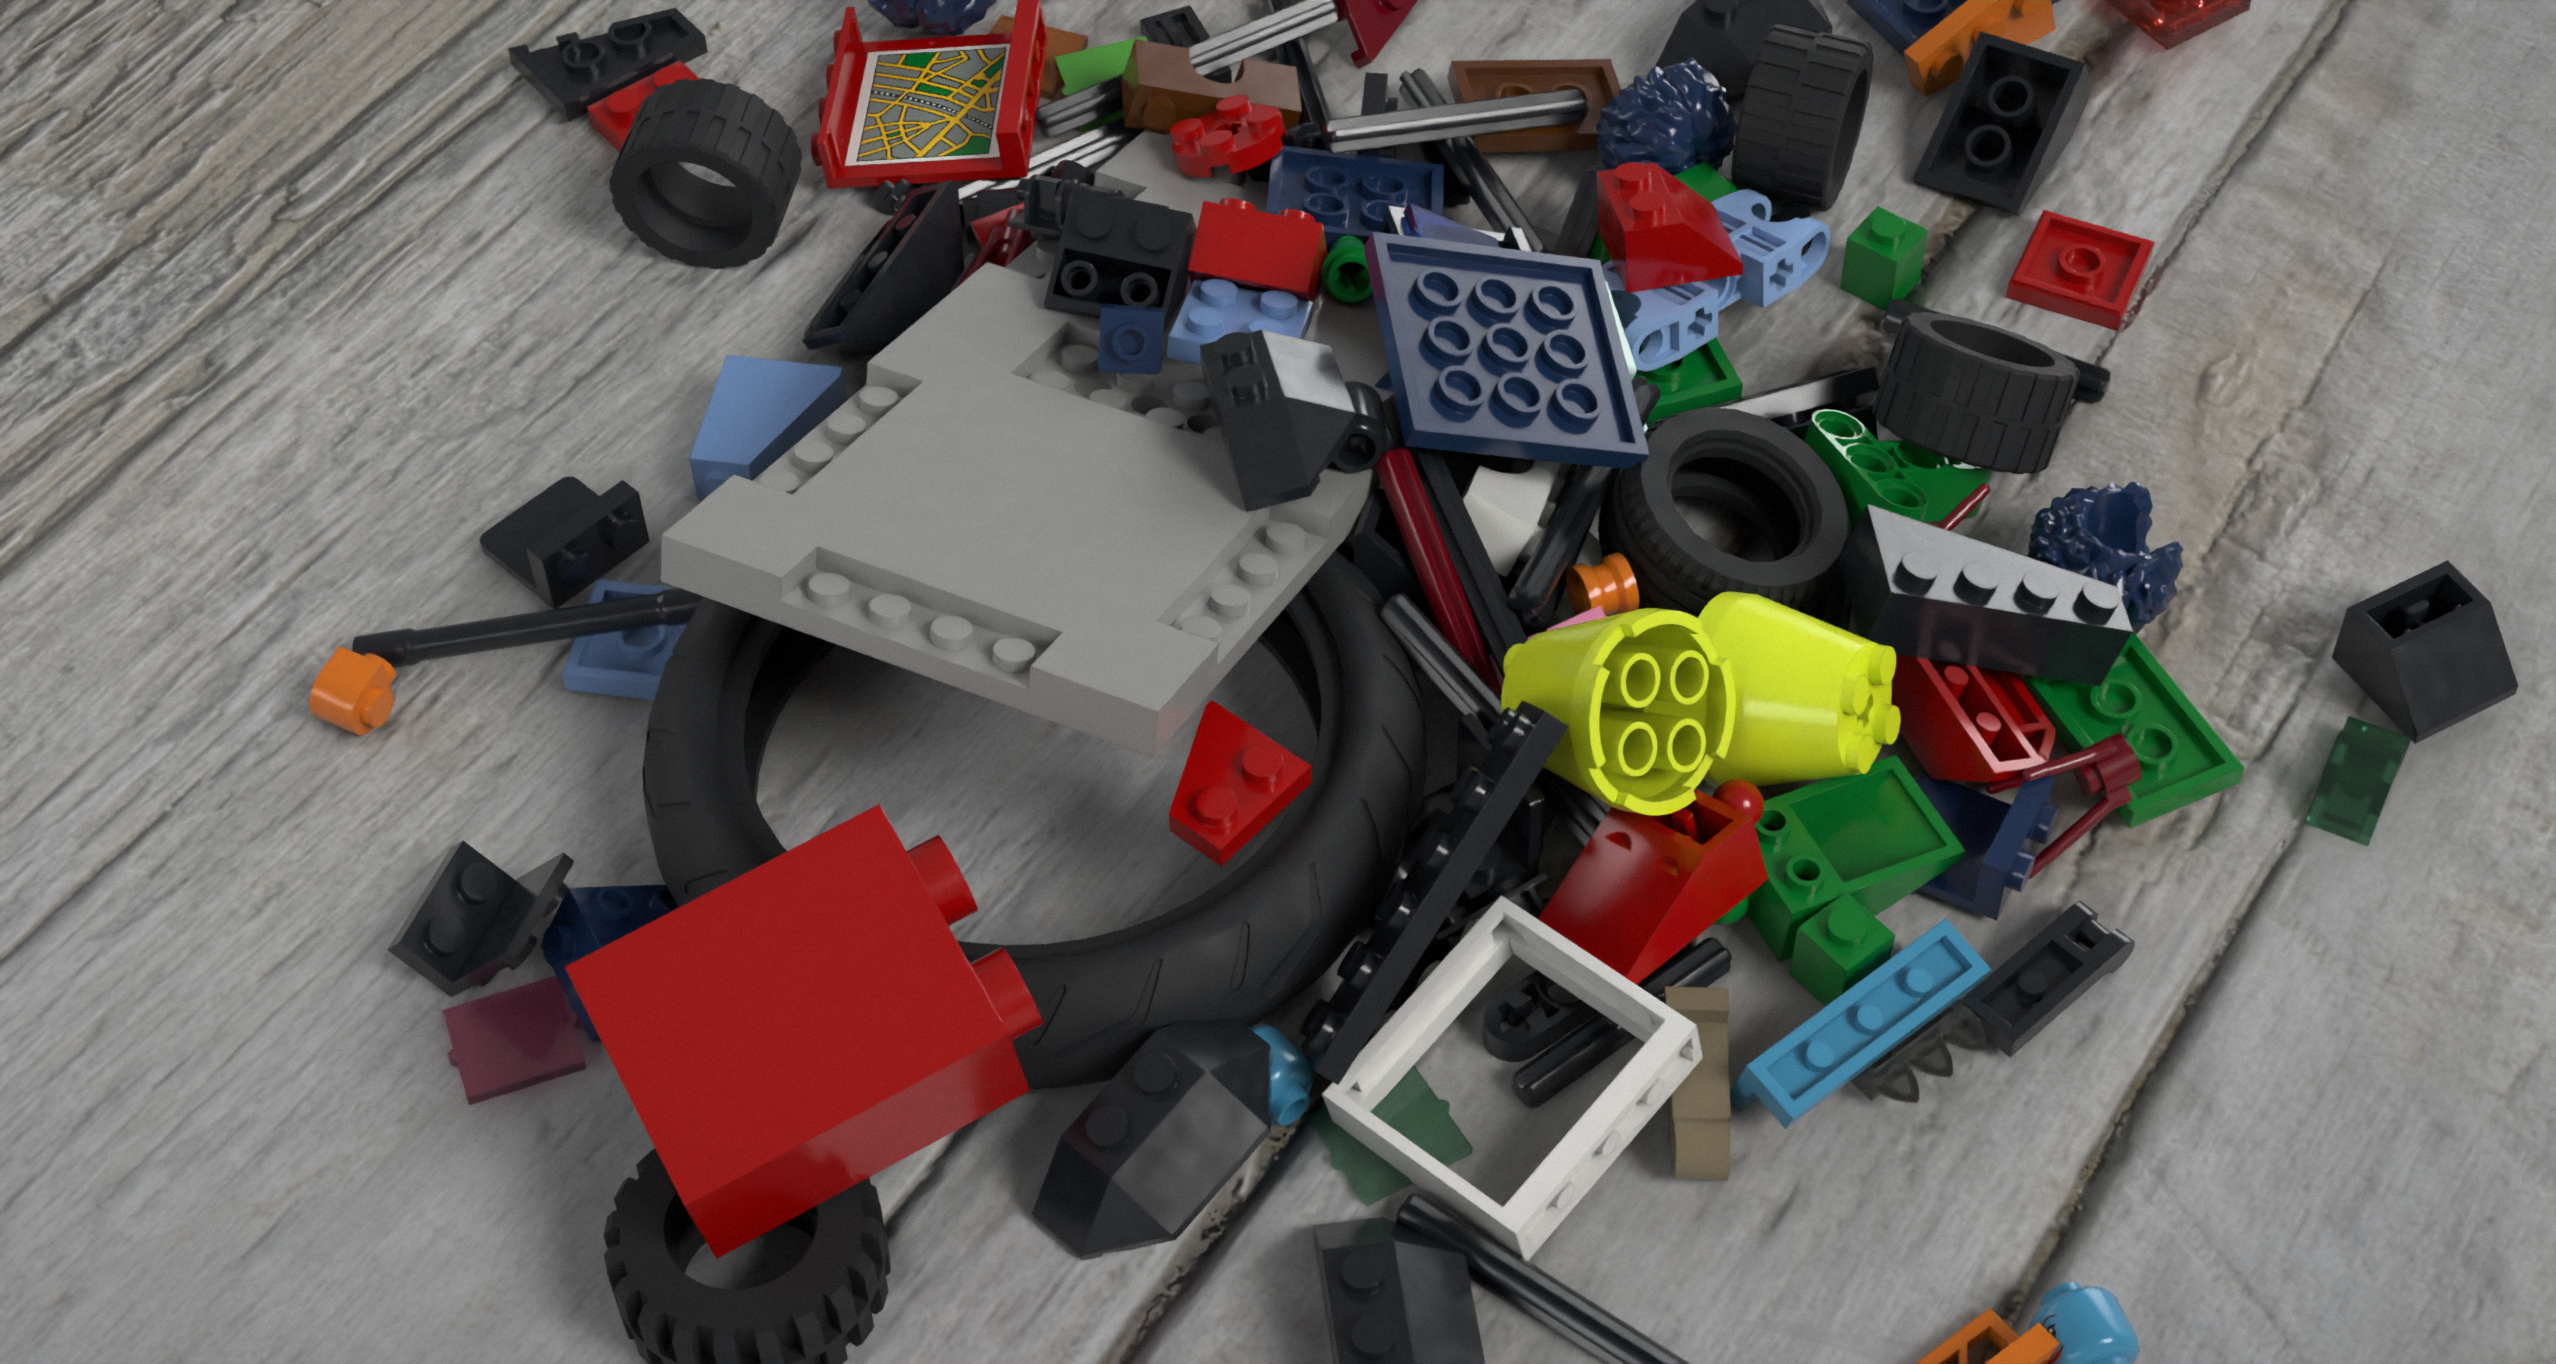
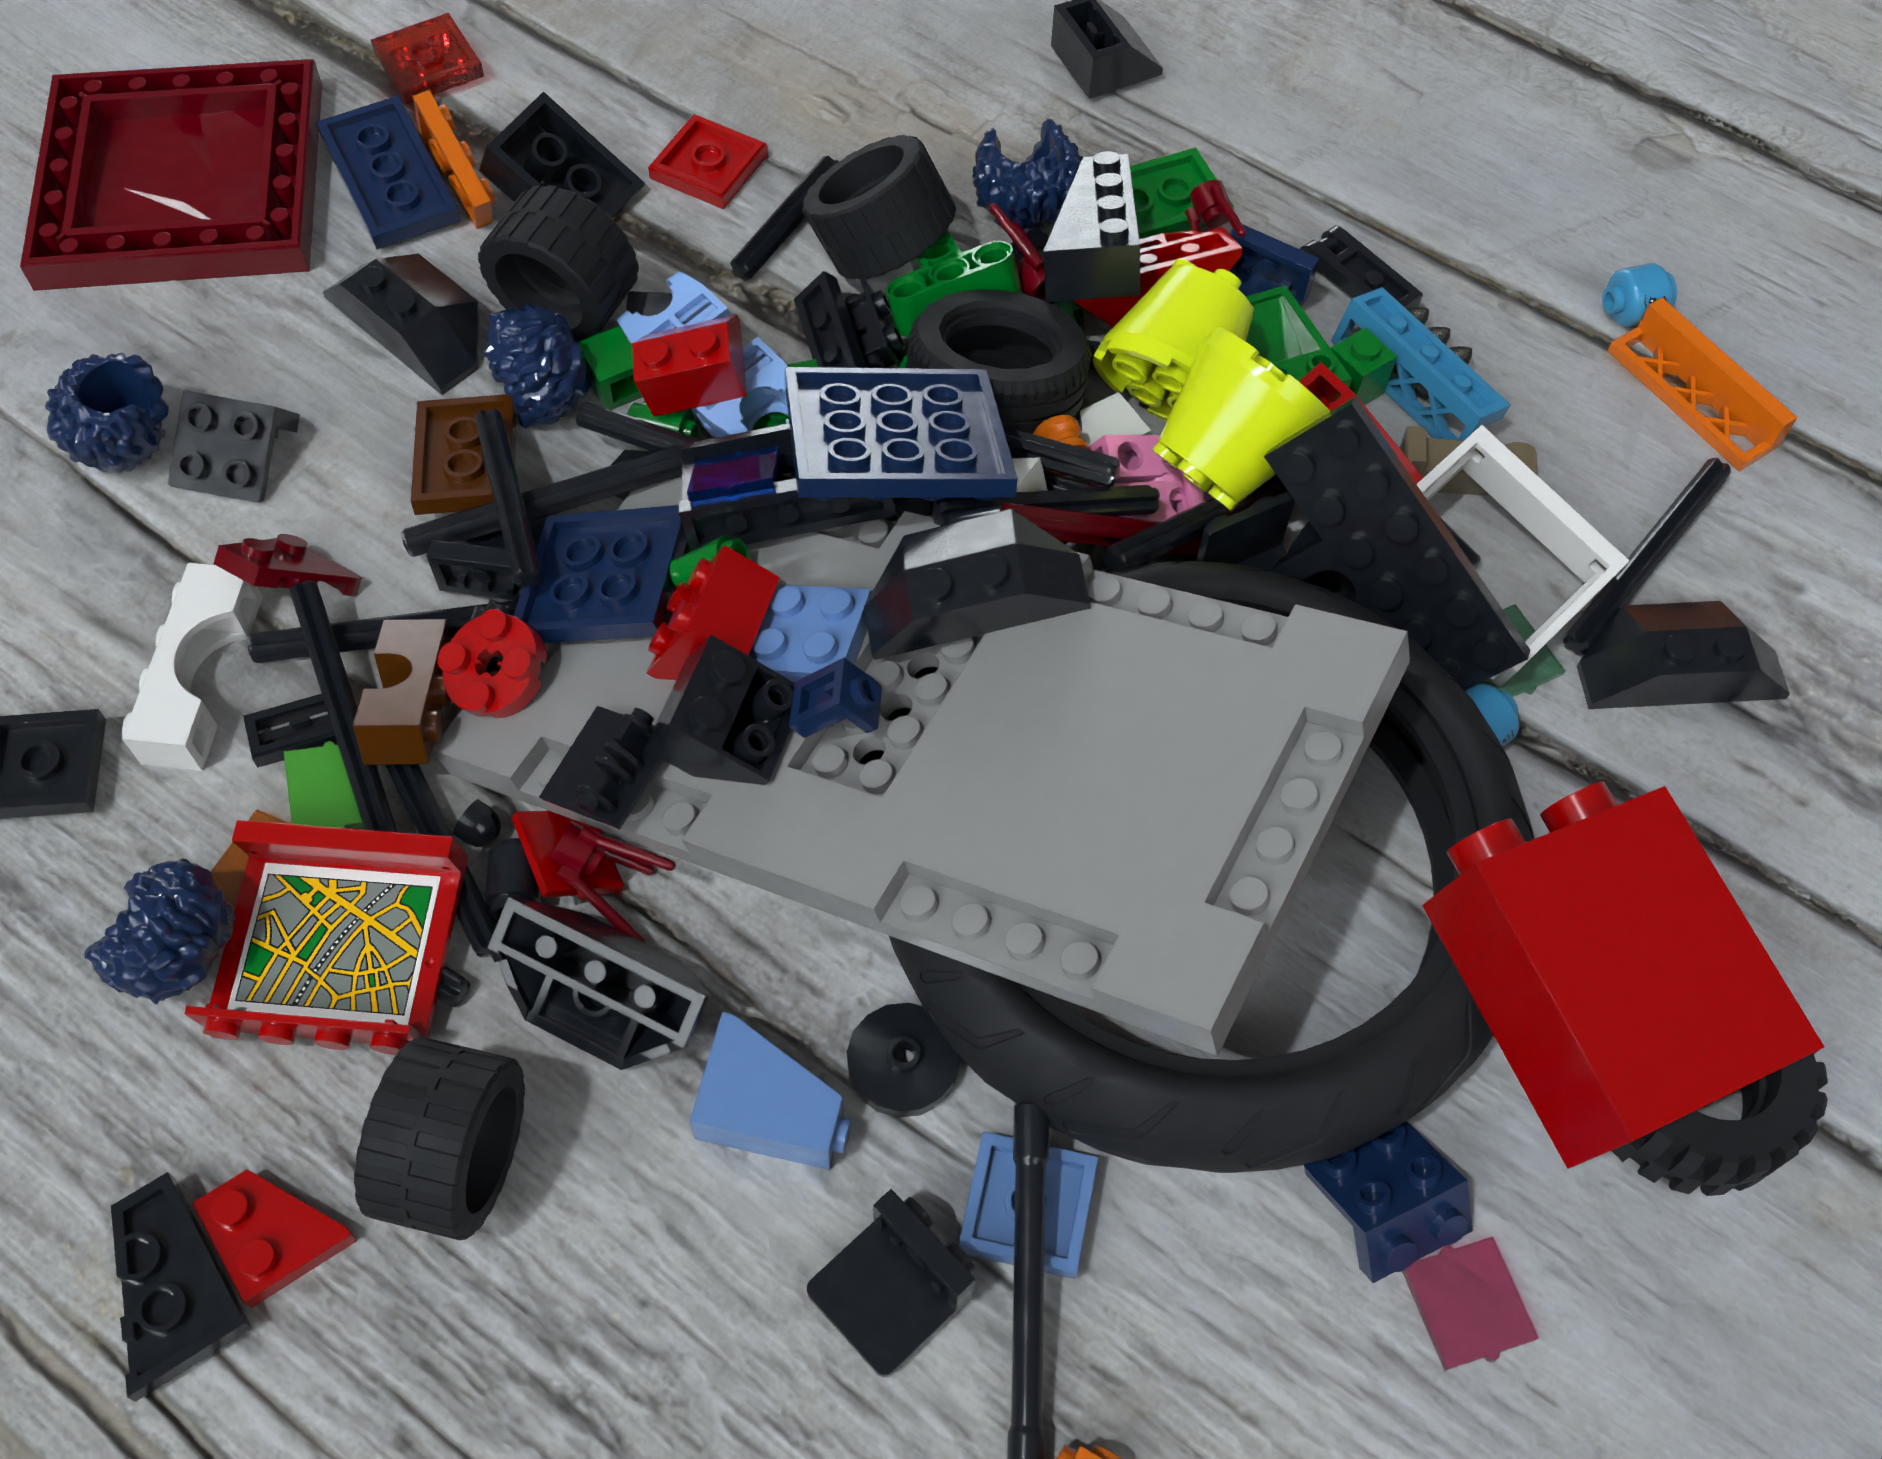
camera: 90 degrees left, 10 degrees up
(477, 919) = (1380, 1315): black bracket -> none
(1159, 1139) = (1557, 750): black wedge -> none
(1883, 258) = (696, 252): green brick -> none
(2357, 780) = (1196, 104): clear green slope -> none

